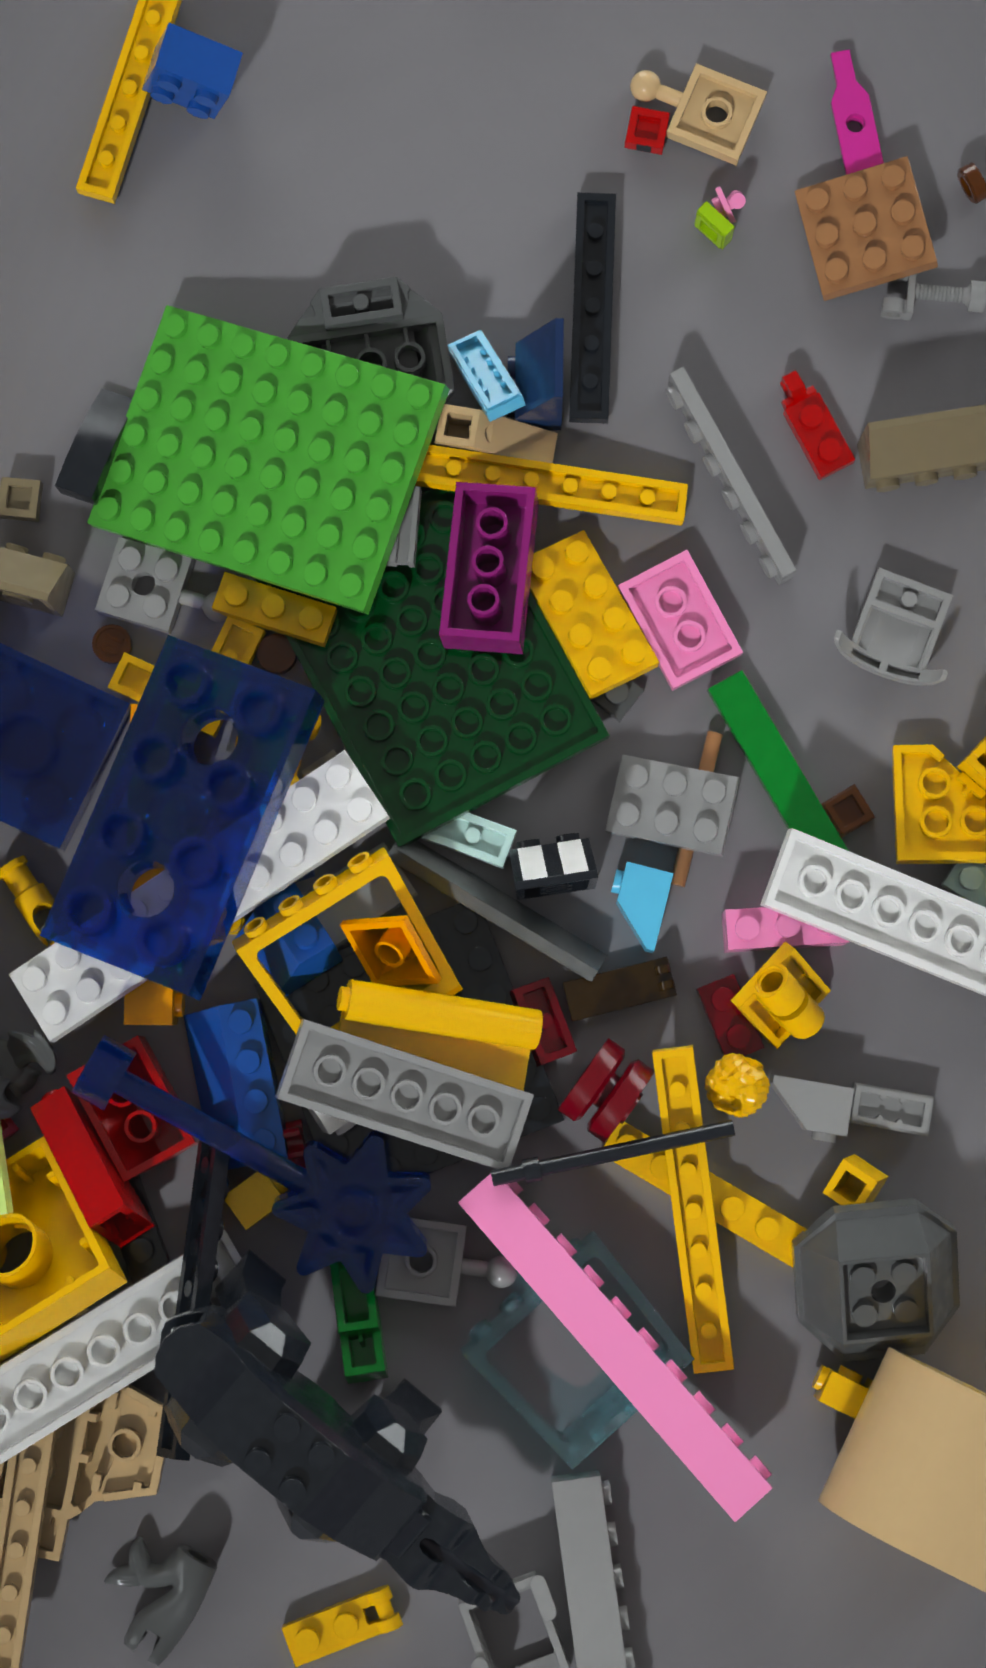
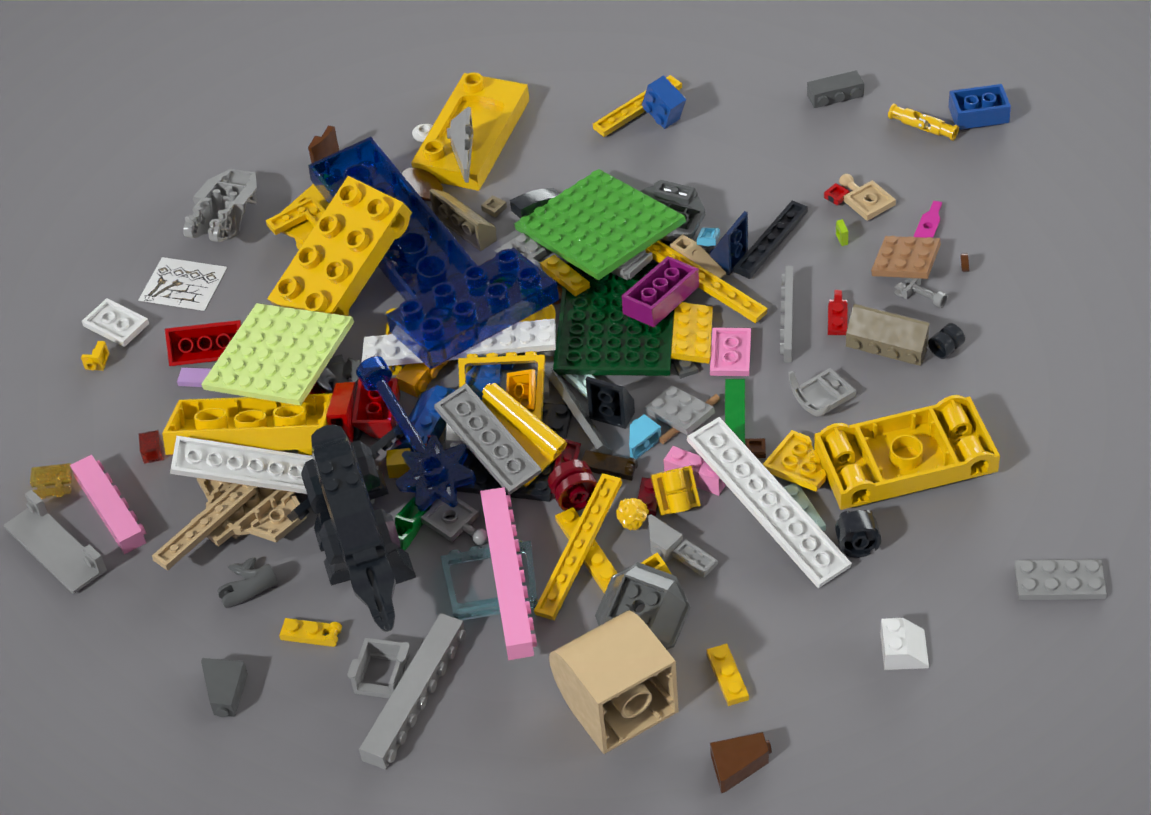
camera: 30 degrees right, 35 degrees down
(533, 1169) = (521, 492): black bar -> none
(725, 205) = (854, 228): bright pink plate -> none

